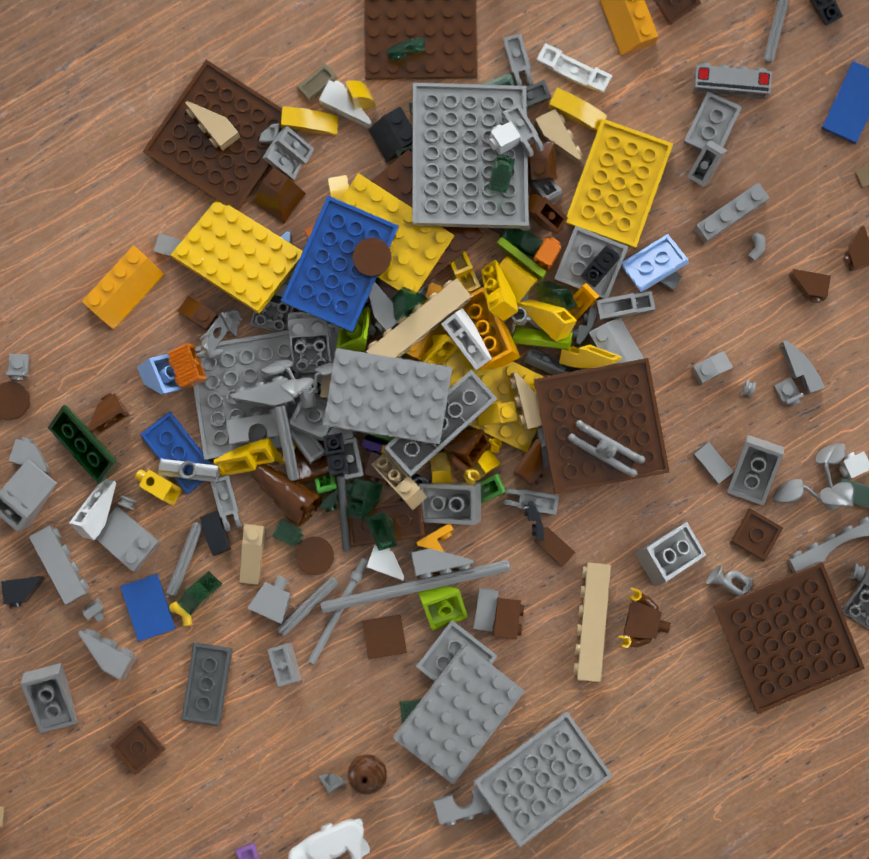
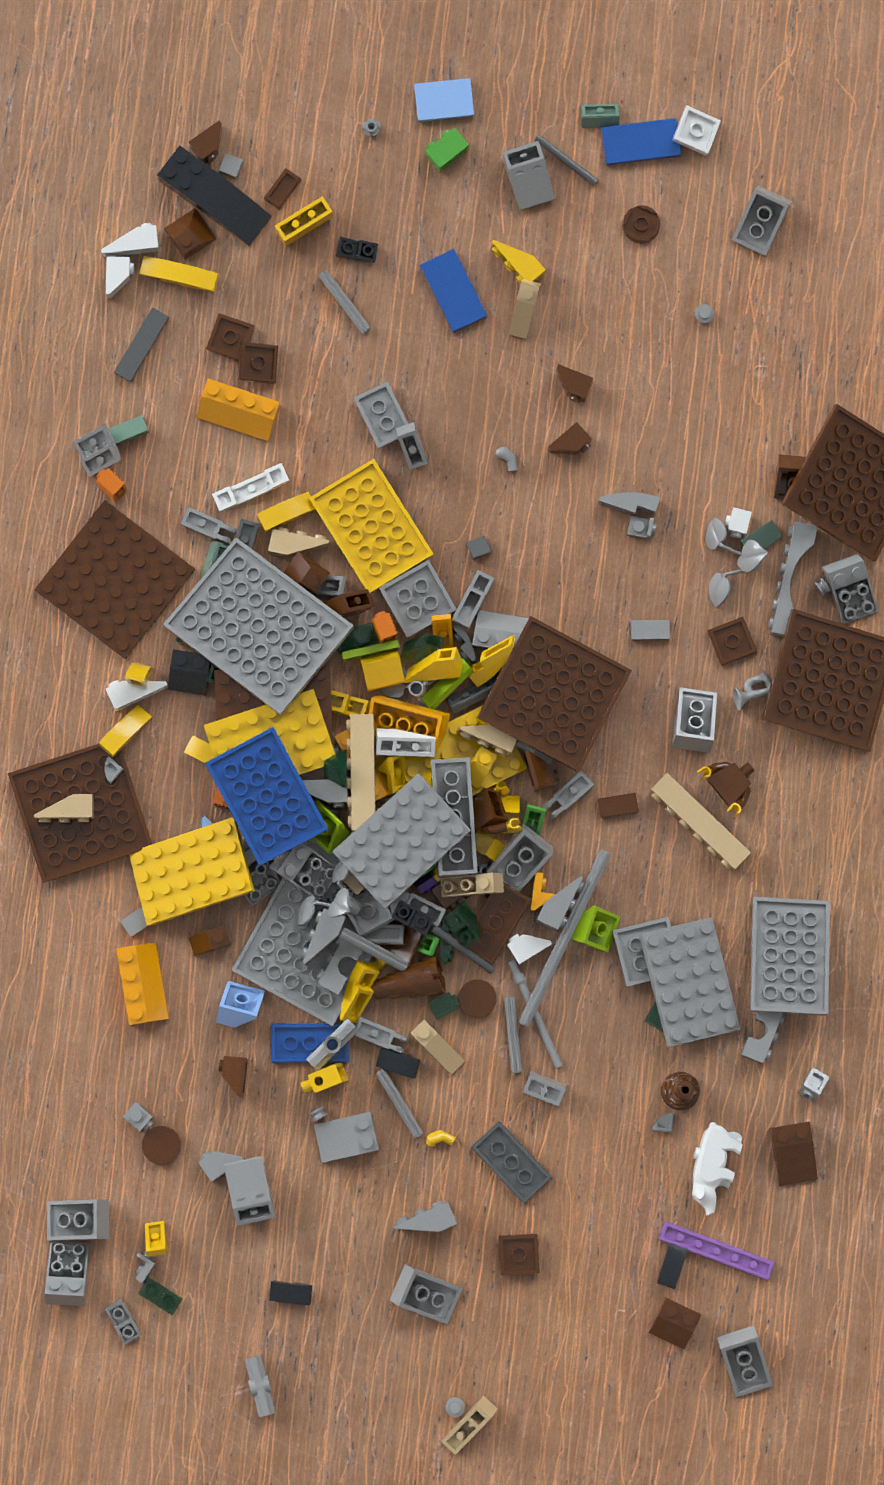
camera: 55 degrees left, 0 degrees up
(19, 590) = (321, 1253): black slope -> none
(59, 564) = (326, 1206): light grey brick -> none
(83, 445) = (246, 1112): dark green slope -> none
(94, 512) = (305, 1145): white slope -> none
(94, 609) = (383, 1205): light grey tile -> none
(148, 607) = (414, 1162): blue tile -> none
(186, 366) = (248, 981): orange brick -> none
(199, 593) = (435, 1112): clear green slope -> none
(226, 322) = (236, 922): light grey piece -> none
(272, 600) = (486, 1058): light grey torso -> none
(278, 195) = (166, 802): reddish brown slope -> none
(288, 153) = (138, 767): light grey slope -> none
(316, 82) = (96, 699): dark tan tile -> none
(372, 257) = (282, 766): reddish brown tile -> none
(382, 530) = (501, 929): clear green slope -> none
(384, 636) = (584, 993): reddish brown tile -> none
(398, 51) = (127, 614): clear green slope -> none
(485, 609) = (625, 897): light grey slope -> none
(498, 293) = (385, 690): yellow slope -> none
(501, 173) = (295, 613): clear green slope -> none
(504, 137) = (267, 588): white brick -> none
(507, 618) = (645, 885): reddish brown brick -> none
(524, 127) = (271, 568): light grey hinge -> none
(533, 515) = (580, 802): black slope -> none
(600, 266) = (427, 593): black slope -> none
(606, 449) = (576, 704): light grey piece -> none
(654, 263) = (457, 549): light blue tile -> none
(711, 368) = (575, 571): light grey slope -> none
(731, 213) = (465, 458): light grey brick -> none
(732, 81) = (360, 372): light grey brick -> none
(748, 388) = (614, 556): light grey bush -> none
(755, 469) = (681, 601): light grey slope -> none

